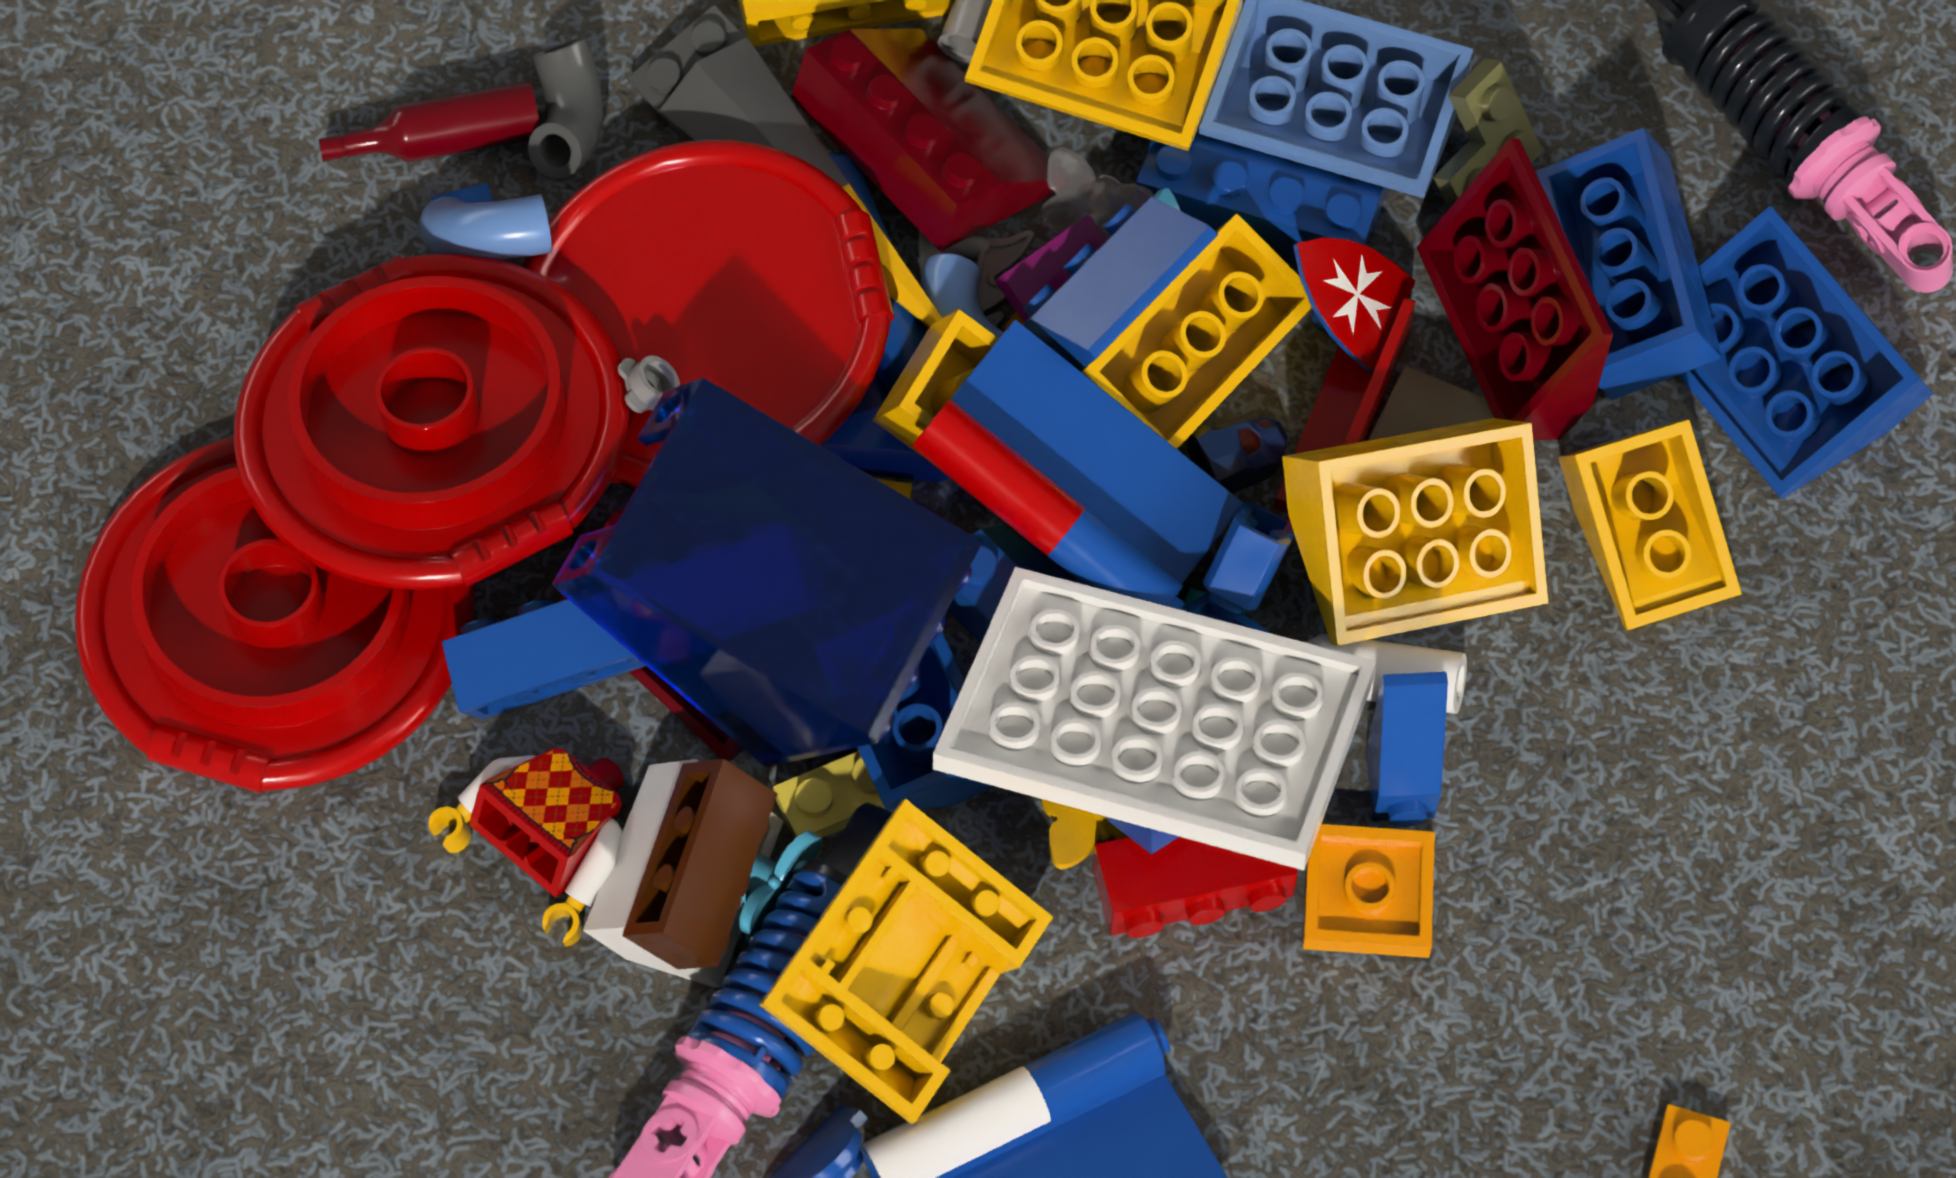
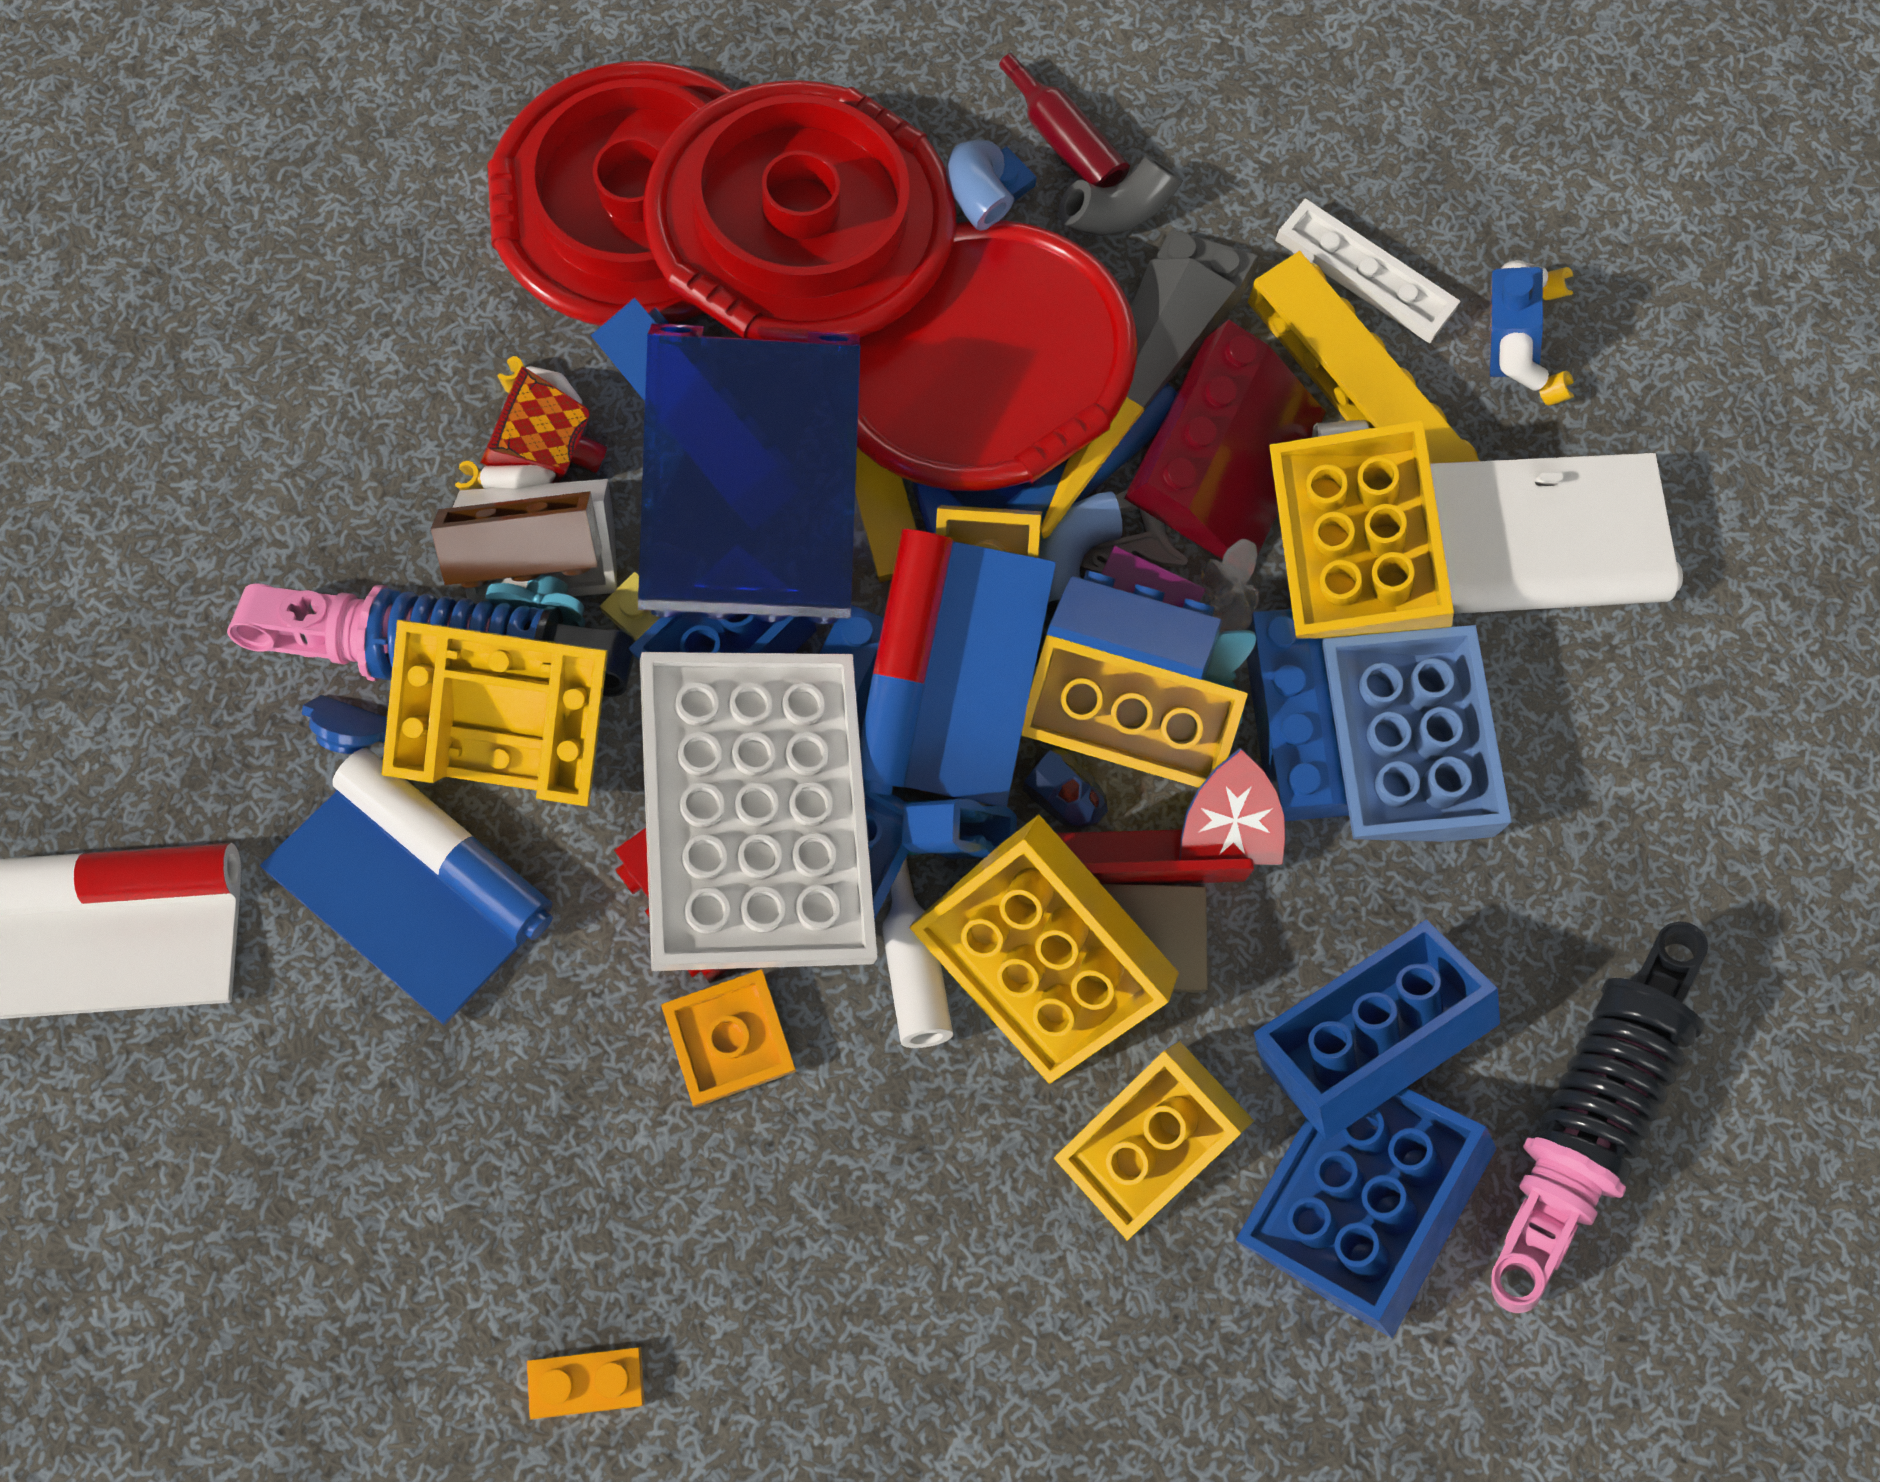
camera: 65 degrees right, 10 degrees up
(646, 381) = (904, 337): light grey plate -> none
(1407, 747) = (837, 1019): blue slope -> none
(1490, 118) = (1440, 882): olive plate -> none
(1518, 298) = (1283, 946): dark red slope -> none

